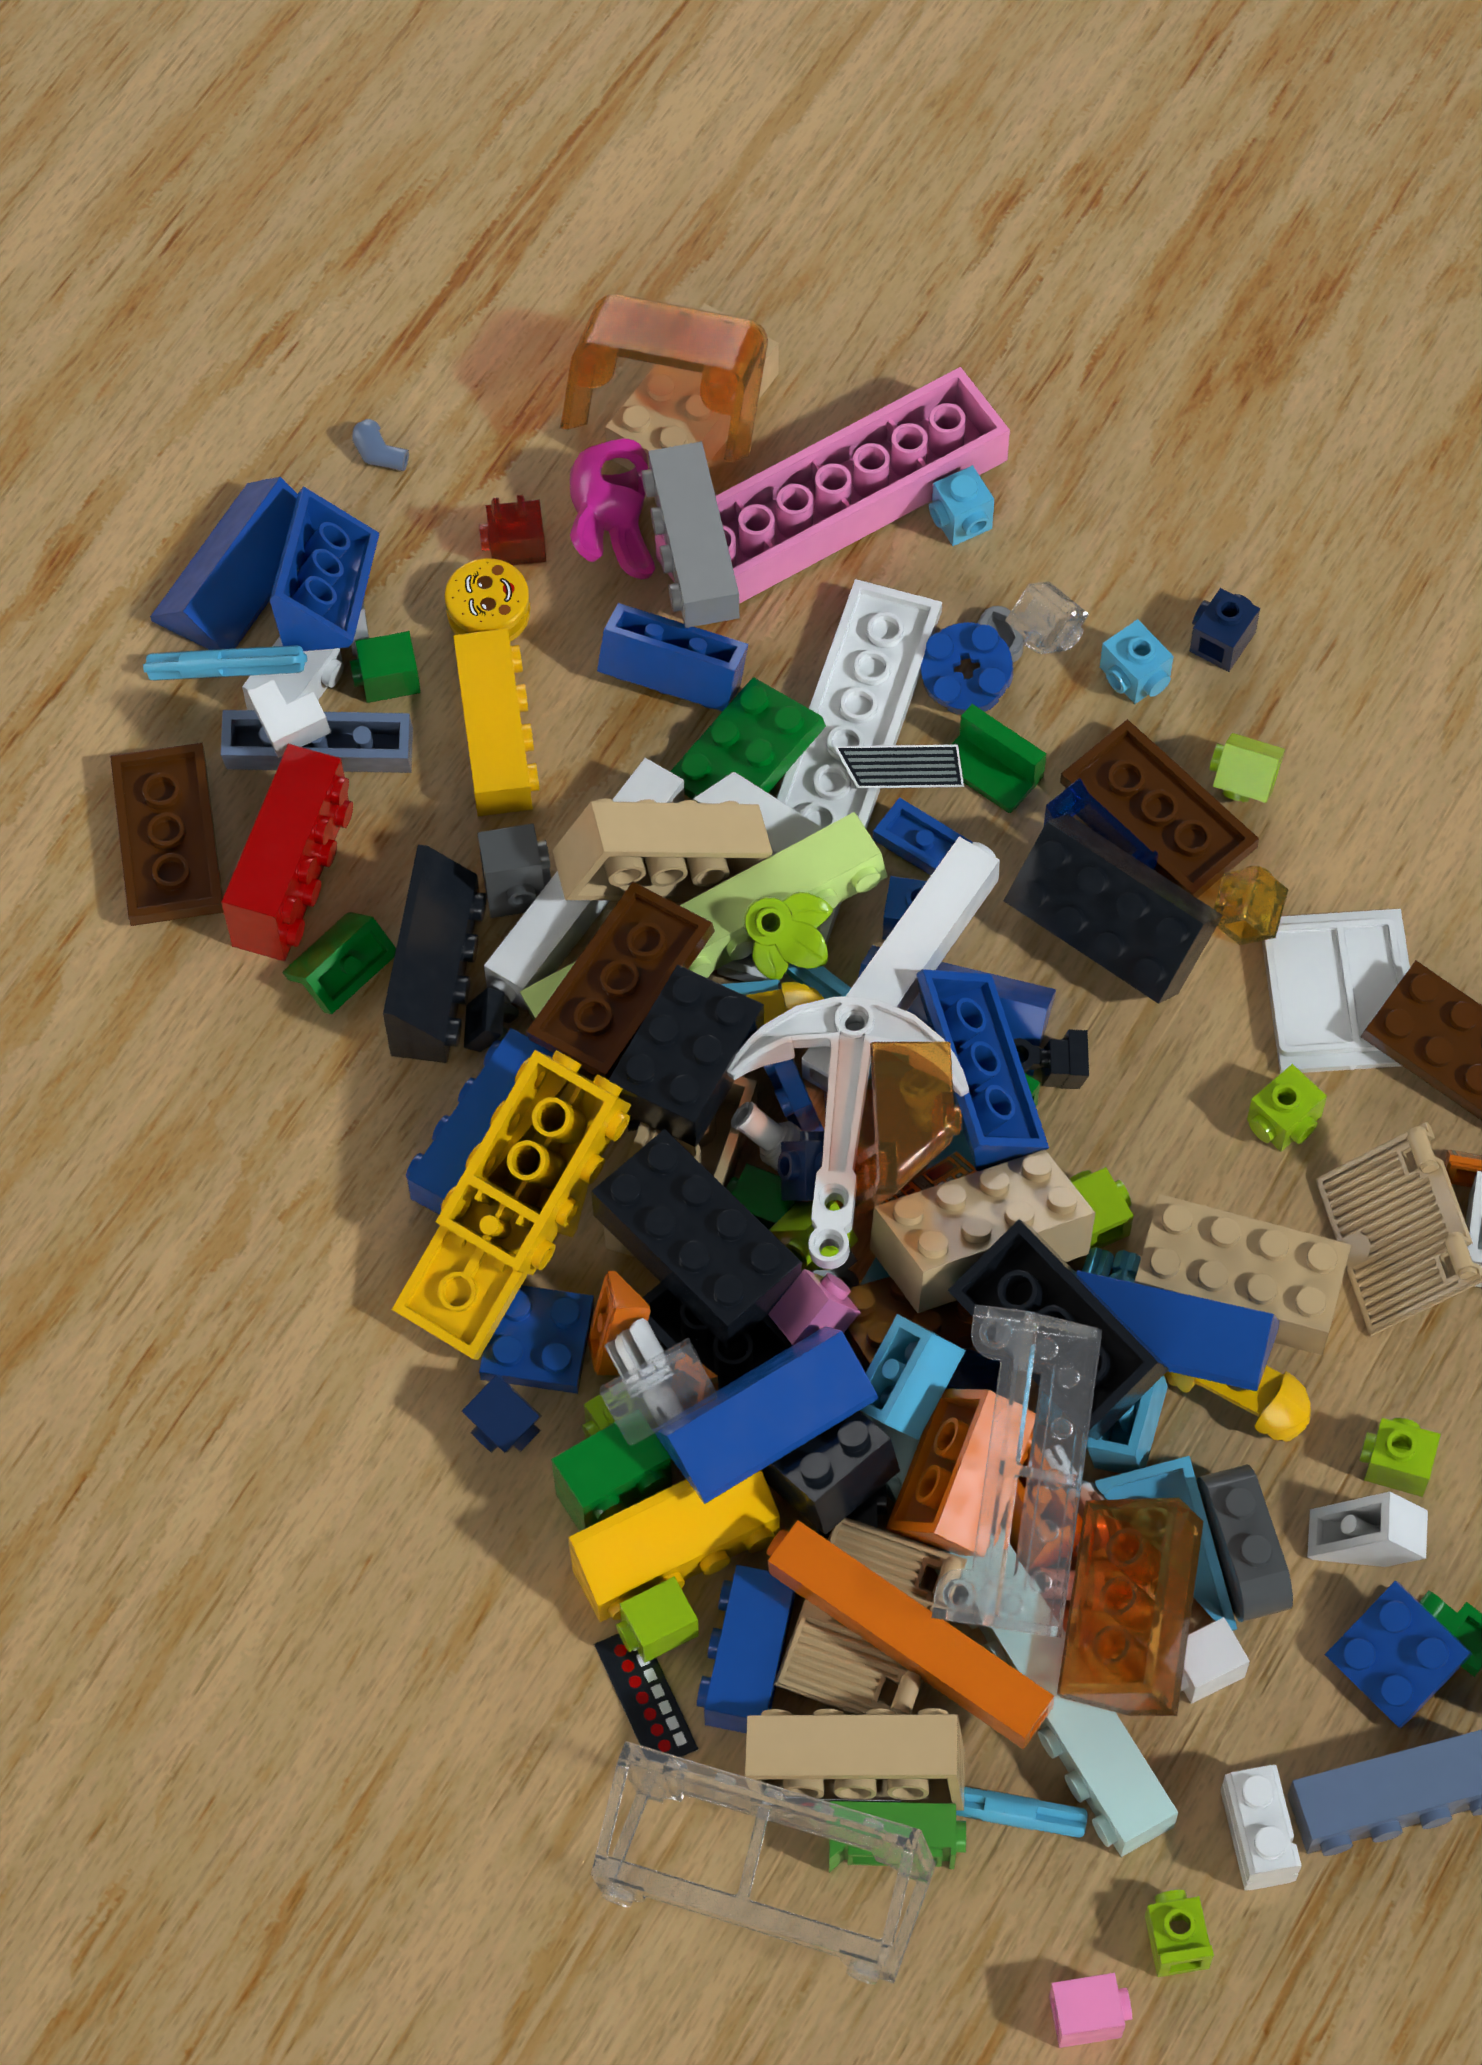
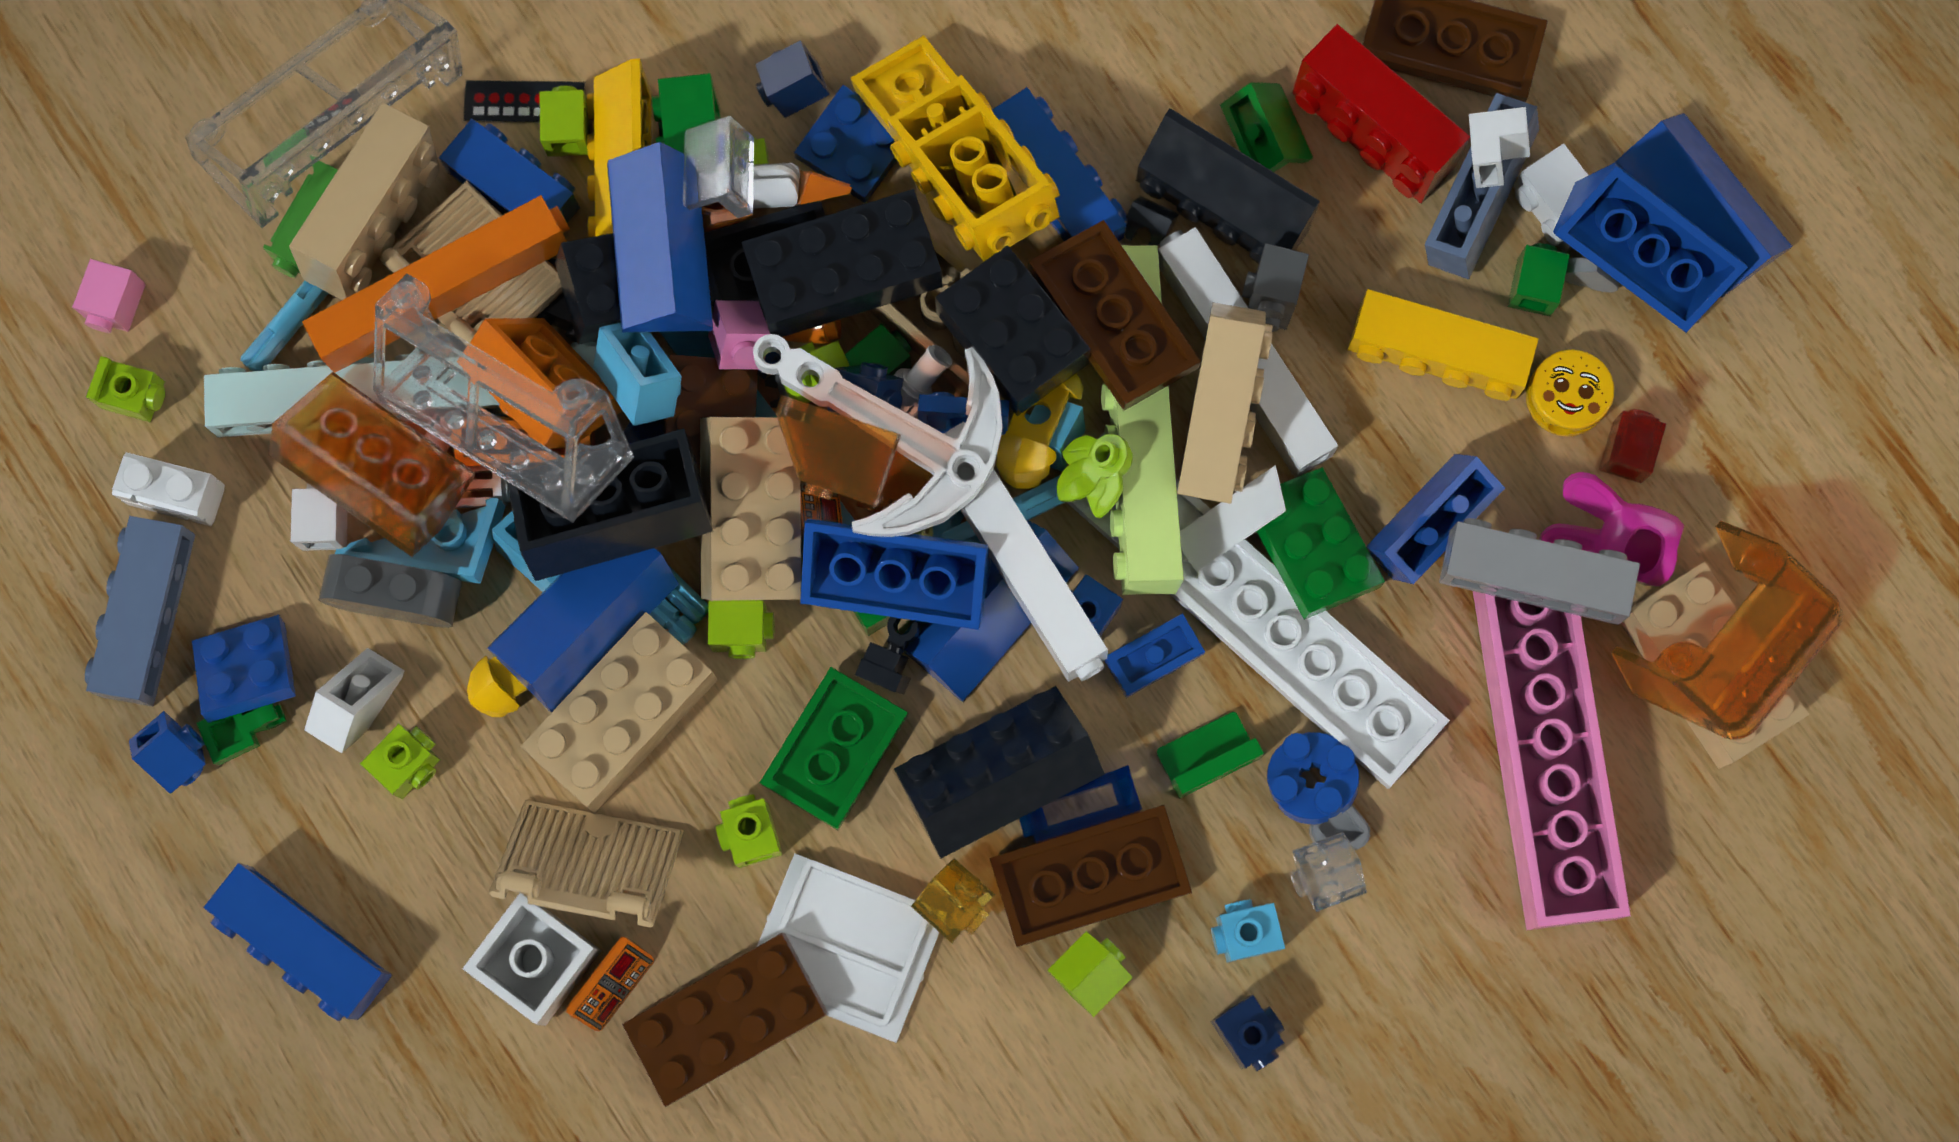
camera: 115 degrees right, 15 degrees up
(225, 663) = (1594, 139): medium azure axle -> none
(373, 448) = (1779, 366): sand blue arm -> none
(902, 765) = (1236, 670): sticker -> none
(962, 505) = (1485, 854): medium azure brick -> none
(1165, 1074) = (834, 748): none -> green plate

